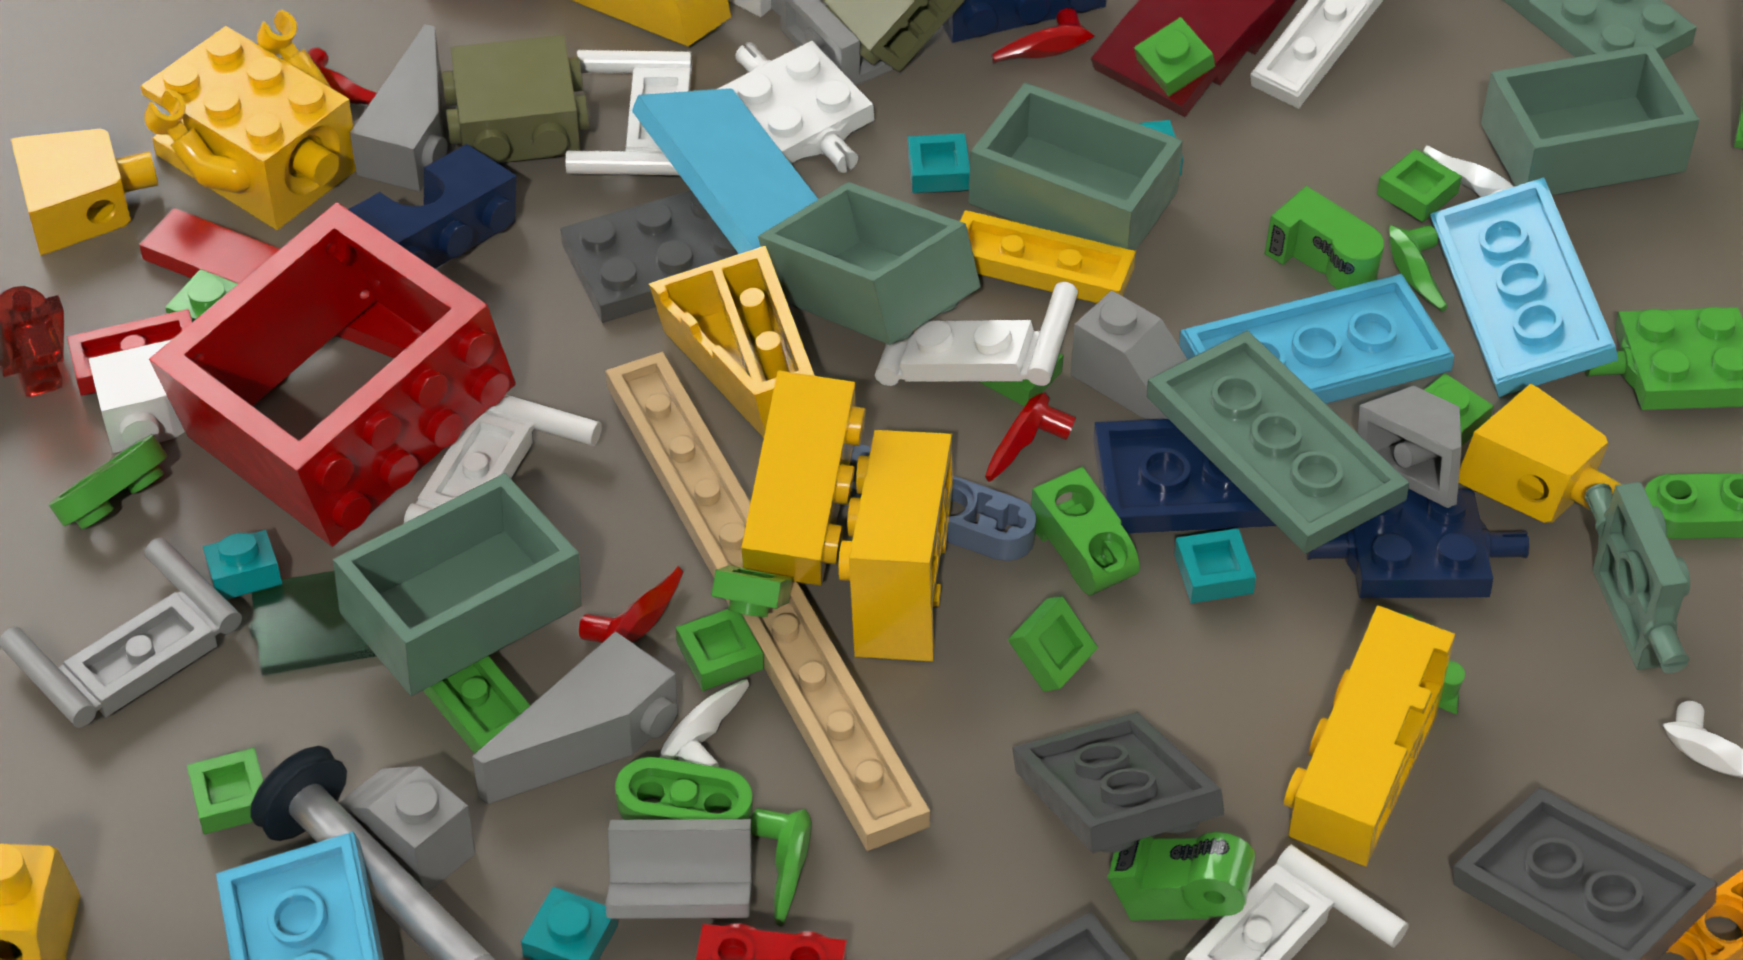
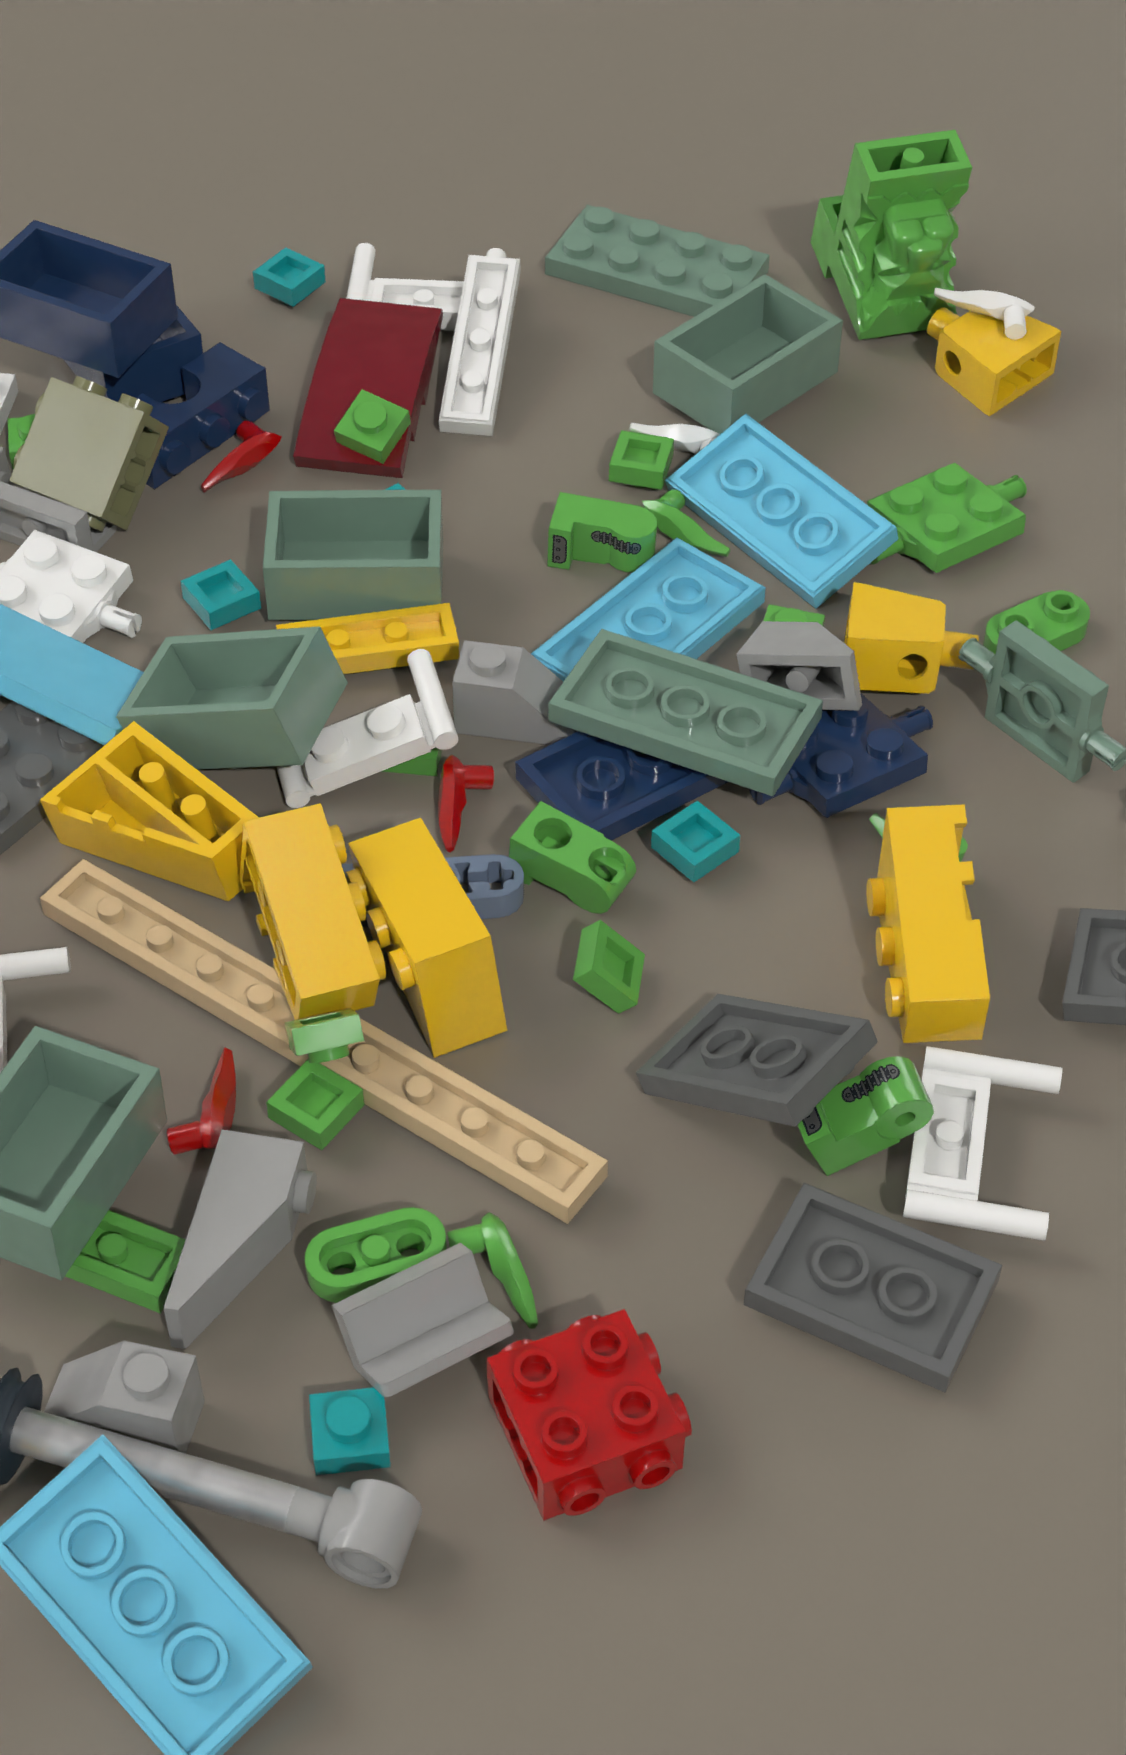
camera: 30 degrees left, 0 degrees up
(700, 724) = (338, 1201): white bar -> none

